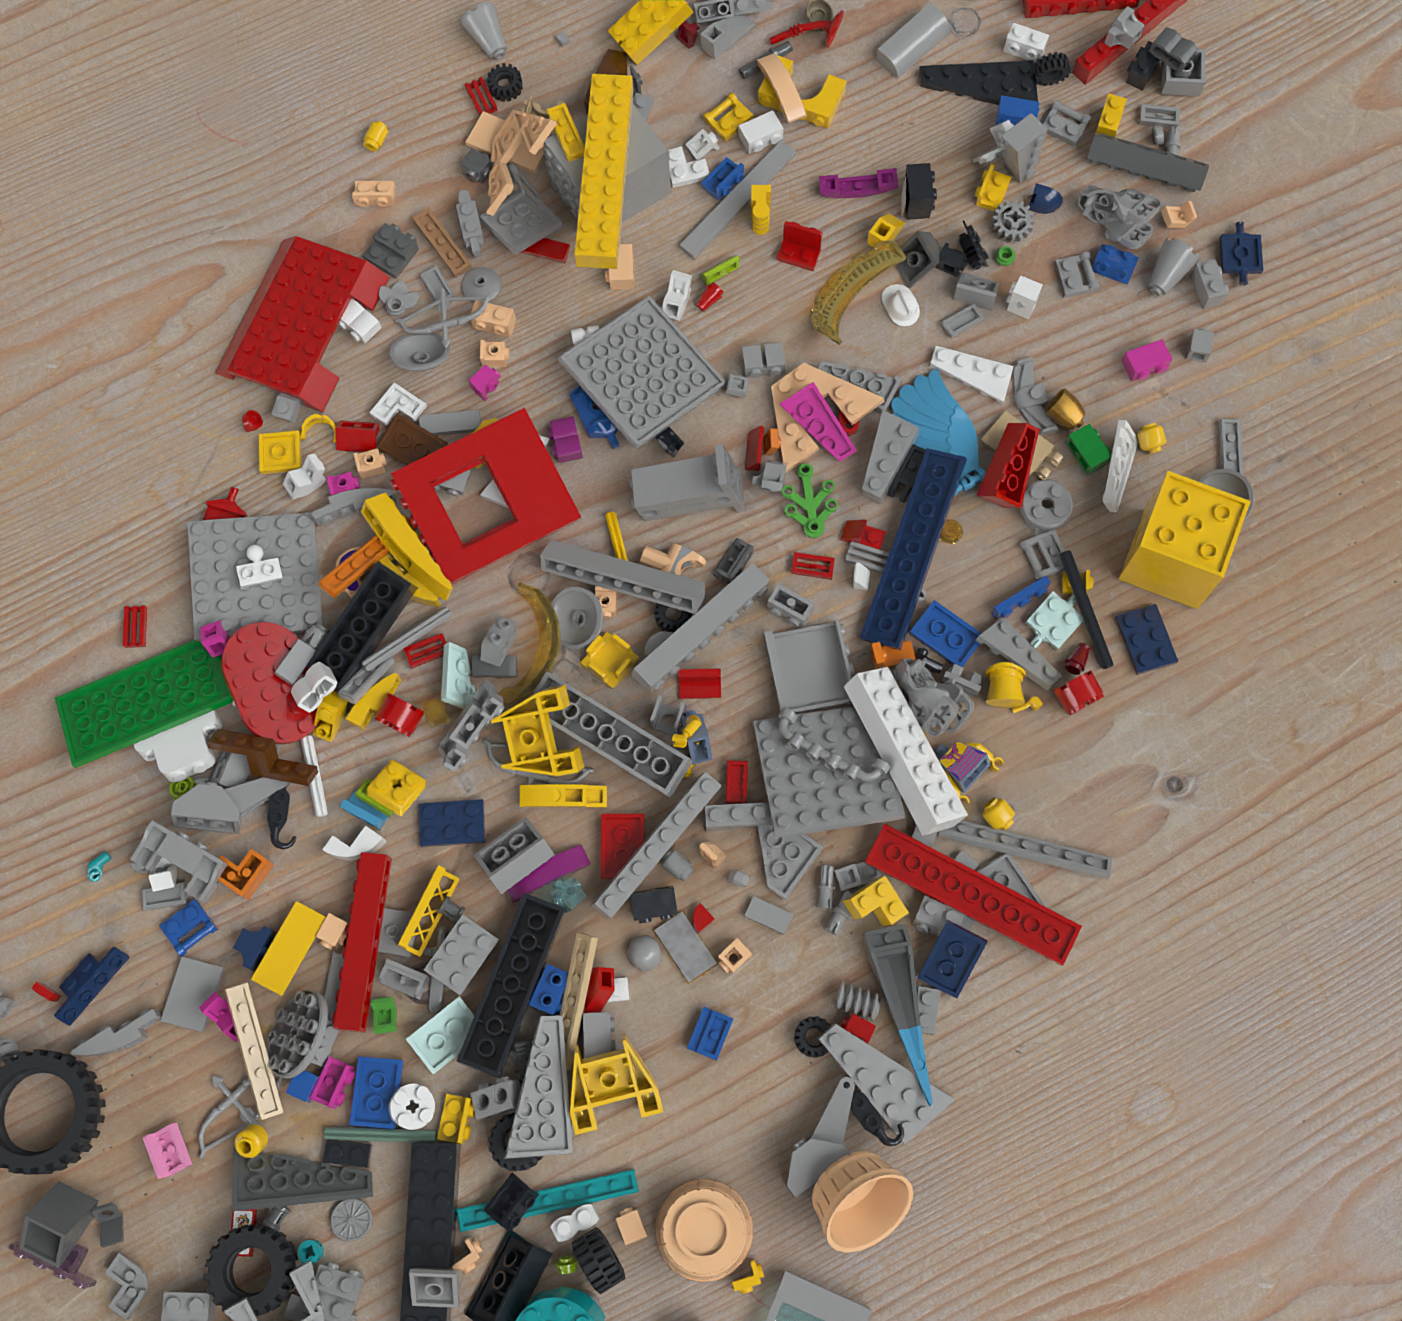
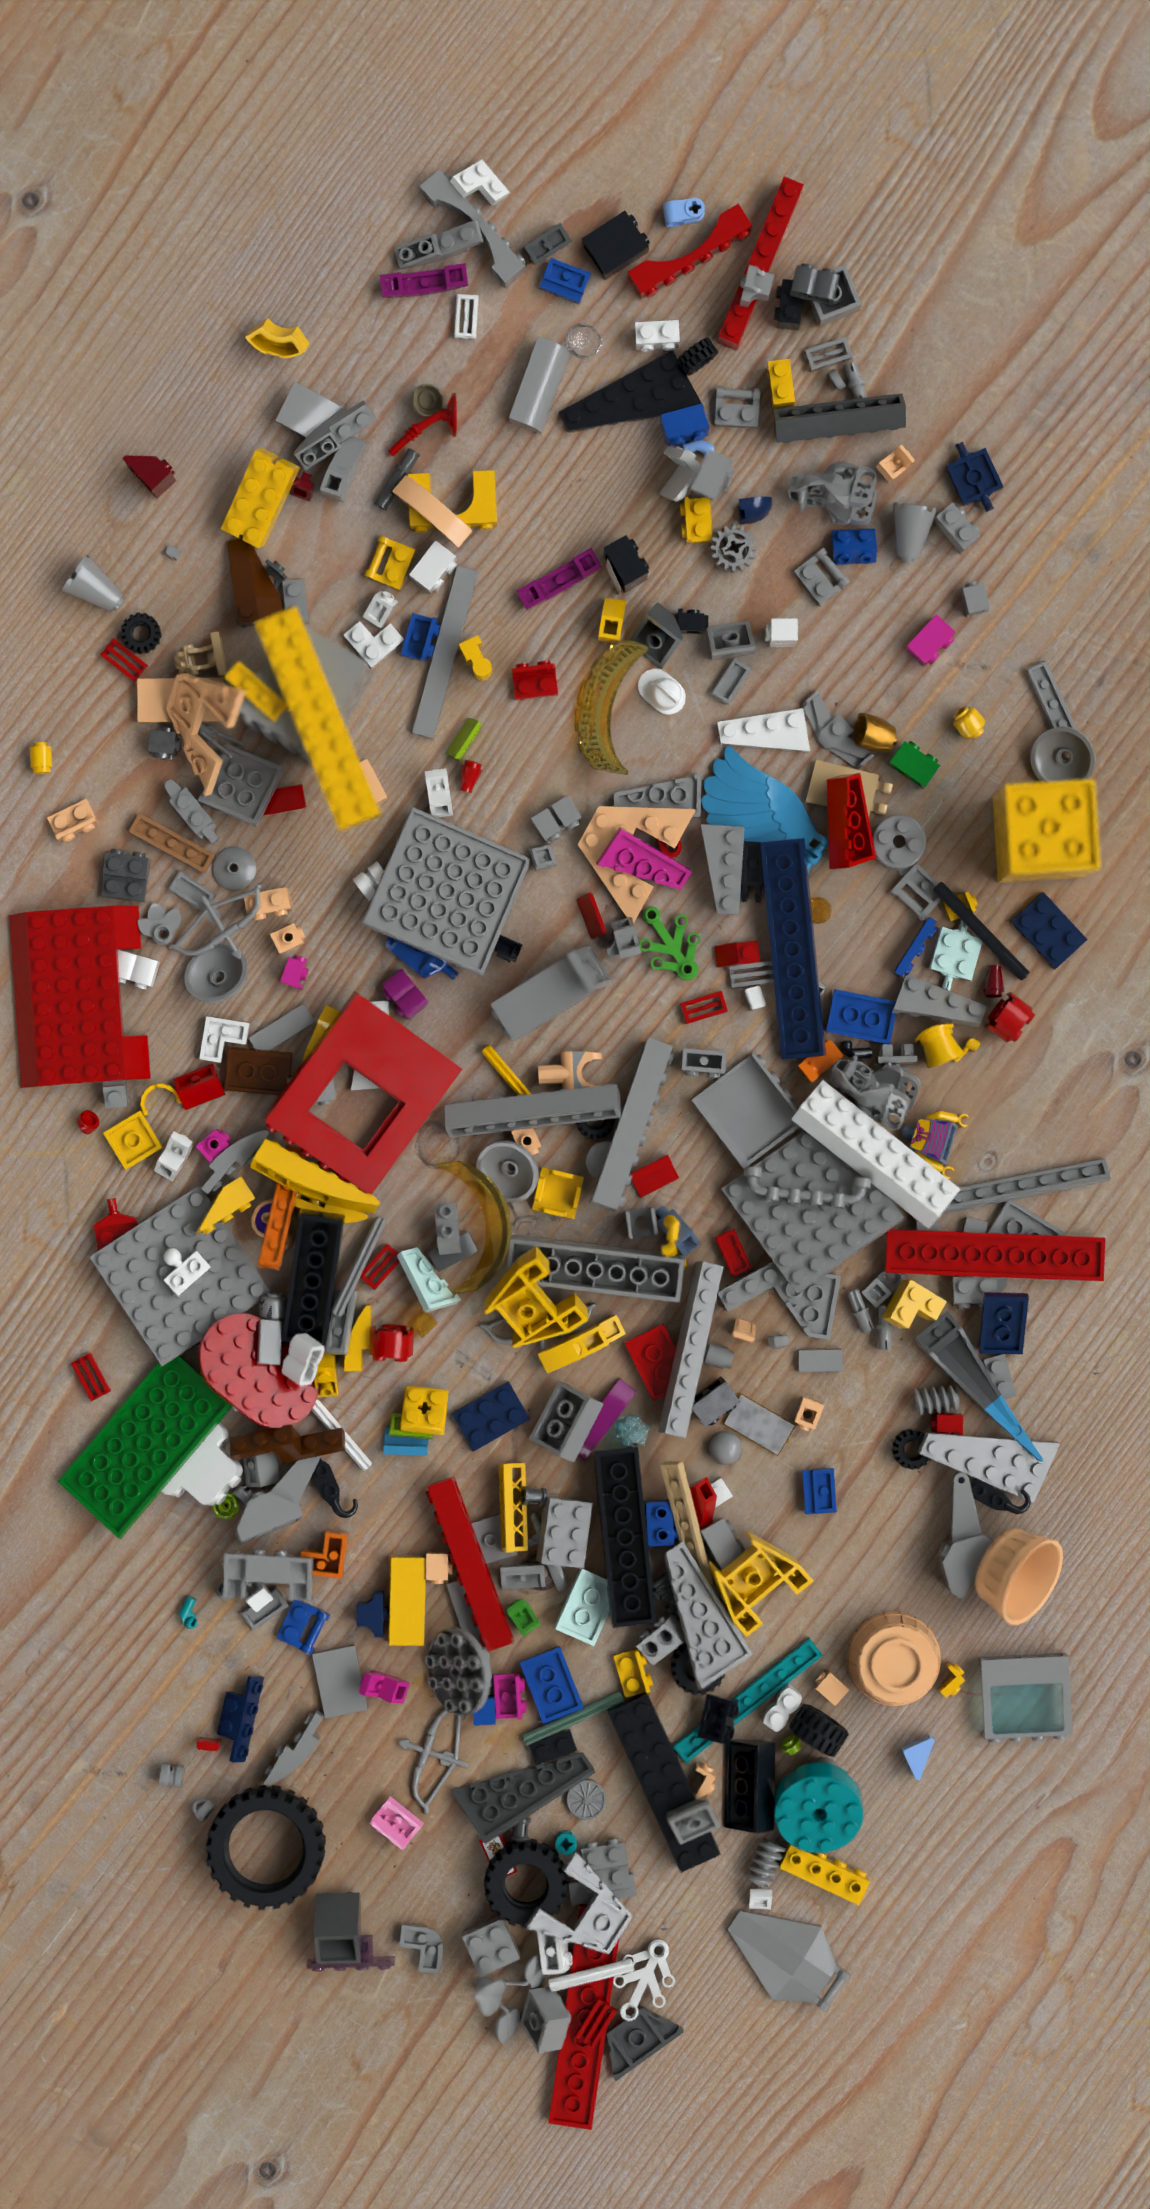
camera: 30 degrees left, 15 degrees up
(110, 1225) = (381, 1907): dark grey bracket -> none
(214, 638) = (183, 1357): dark pink brick -> none
(251, 1140) = (465, 1779): yellow head -> none
(253, 1051) = (426, 1704): tan plate -> none
(326, 534) = (228, 1200): none -> yellow slope
(366, 842) = (424, 1473): white brick -> none
(367, 468) = (224, 1117): light nougat brick -> none
(423, 1112) = (601, 1684): white plate -> none
(466, 728) = (466, 1306): light grey bracket -> none
(701, 918) = (761, 1393): red tile -> none
(734, 561) = (626, 1040): dark grey hinge -> none
(771, 442) = (605, 901): orange plate -> none
(971, 246) = (702, 588): black hinge -> none
(998, 813) = (985, 1167): yellow head -> none
(1005, 251) = (742, 583): bright green plate -> none
(1121, 461) = (951, 766): white wing -> none

